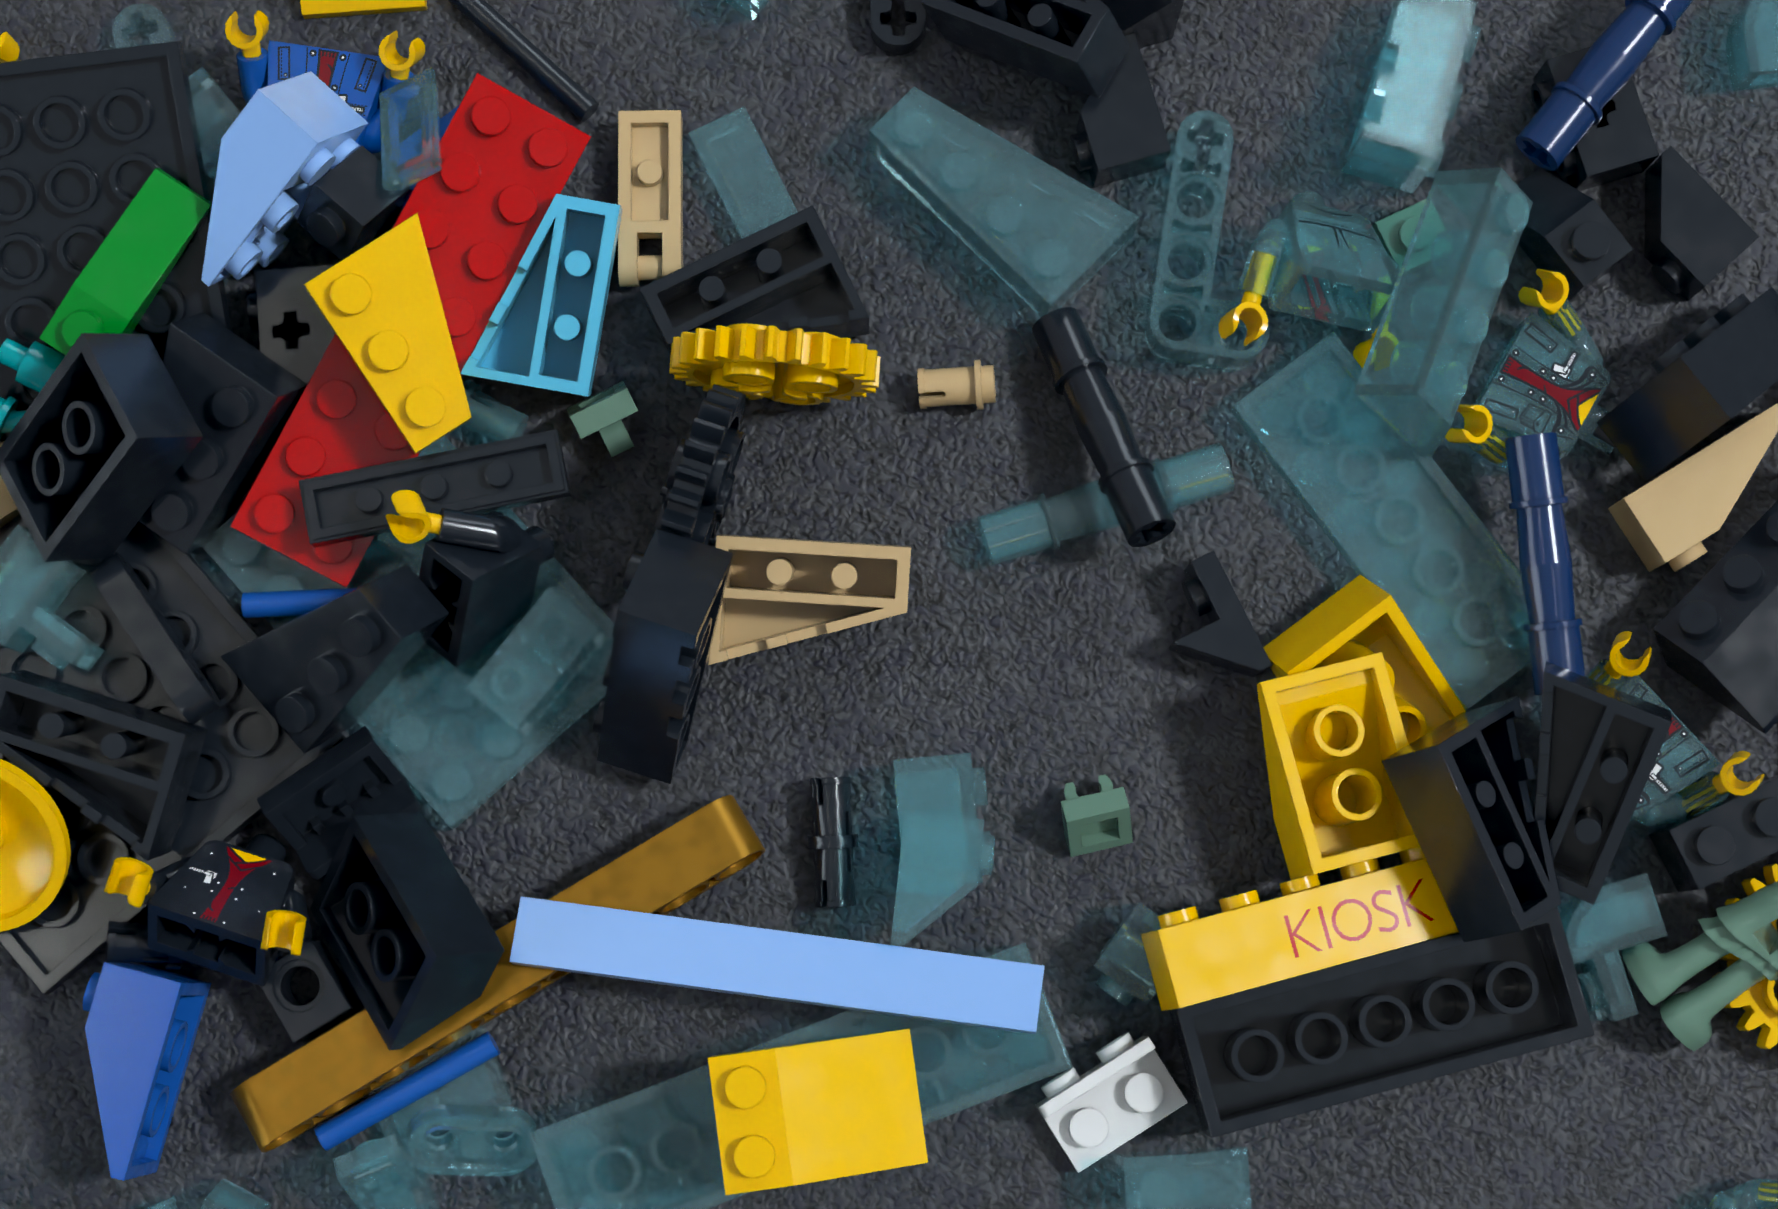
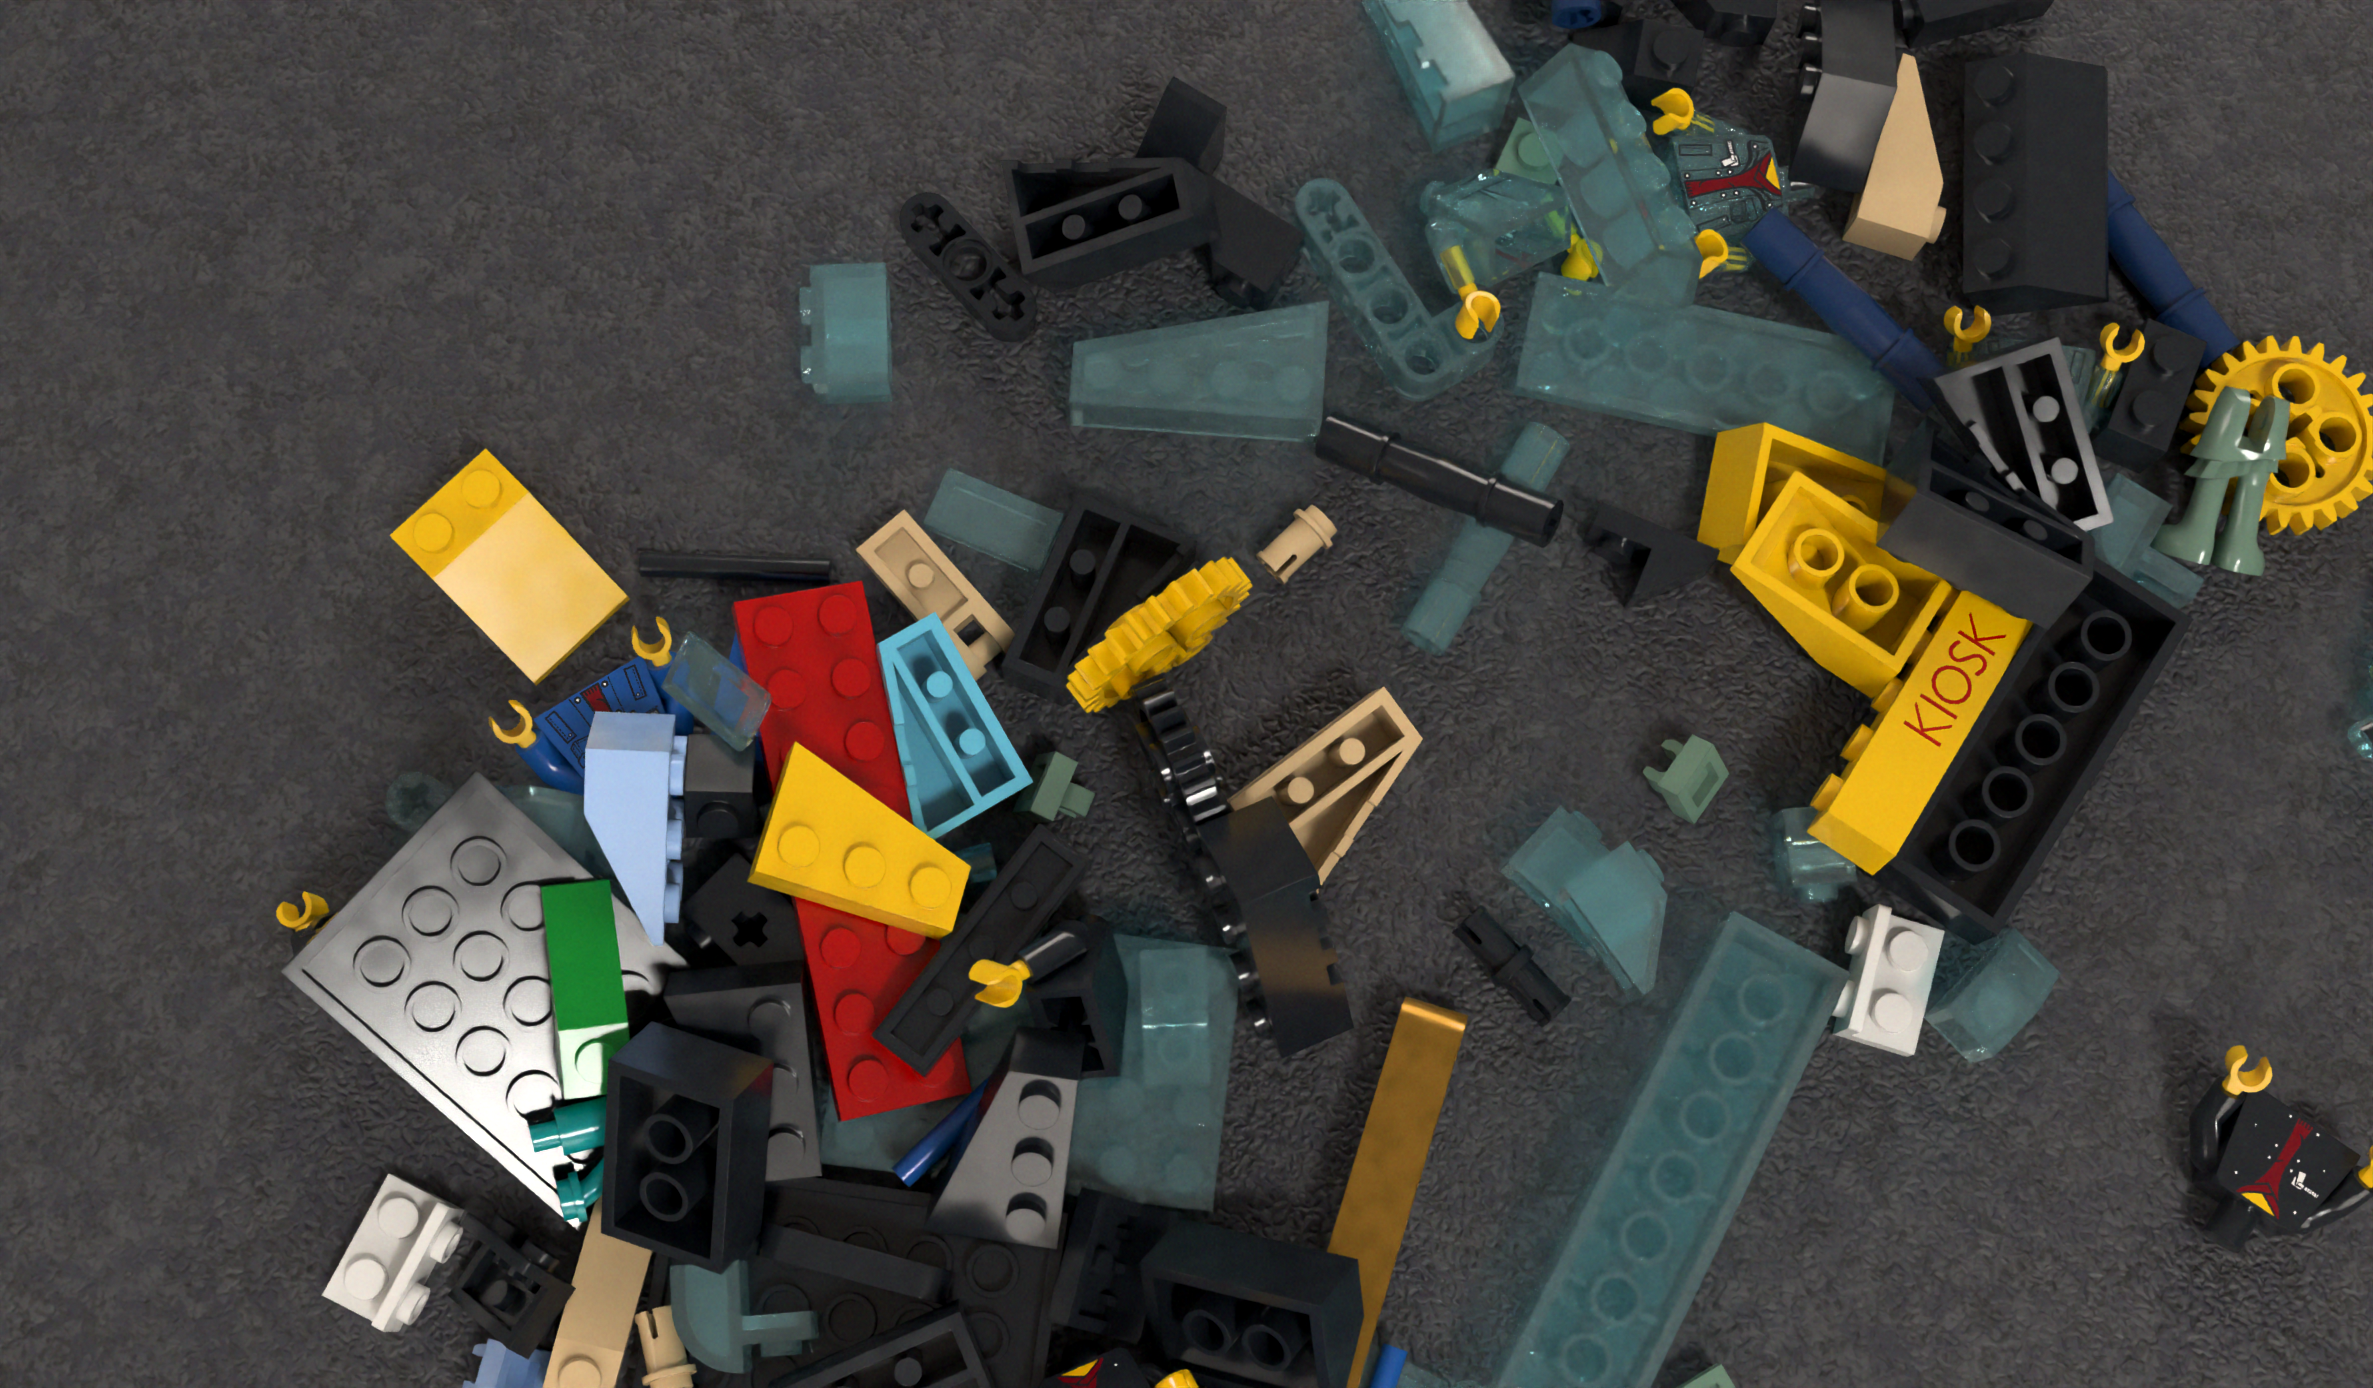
camera: 45 degrees left, 5 degrees down
(778, 965) = (1565, 1090): light blue tile -> none
(817, 1111) = (1699, 1174): yellow slope -> none

